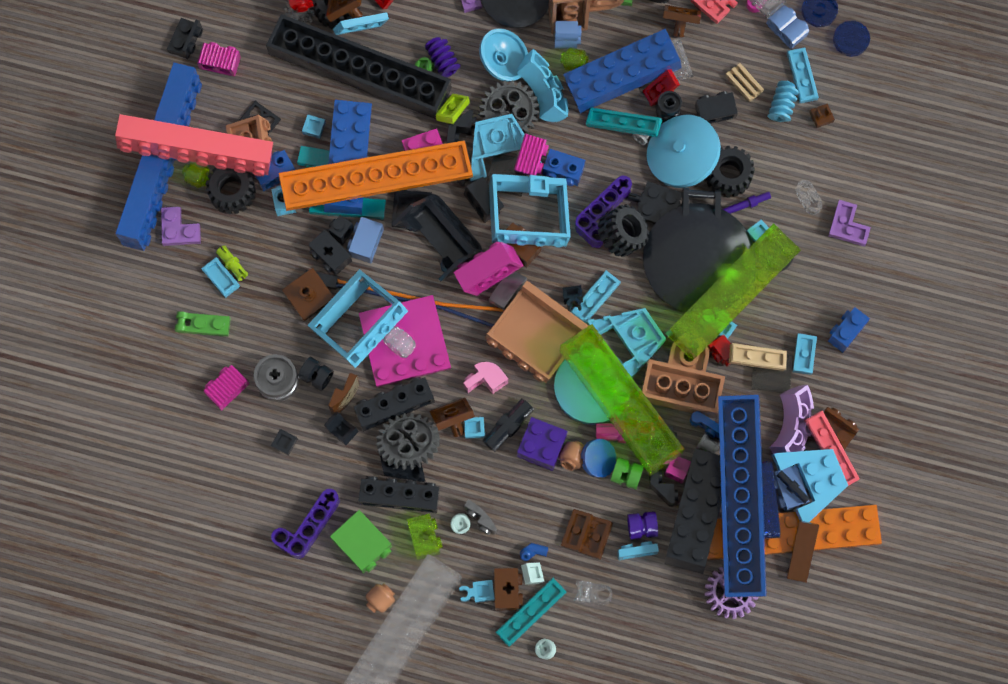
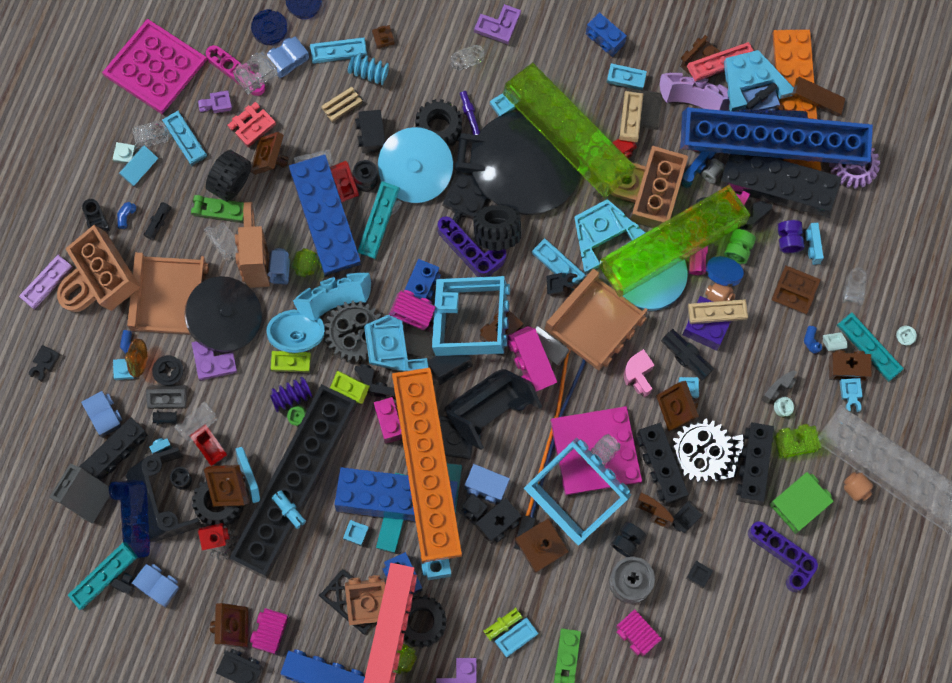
camera: 90 degrees left, 0 degrees up
(221, 24) = (230, 625): none -> reddish brown tile
(326, 59) = (289, 509): none -> medium azure pin
(474, 62) = (290, 362): none -> lime plate
(549, 446) = (717, 311): none -> tan tile

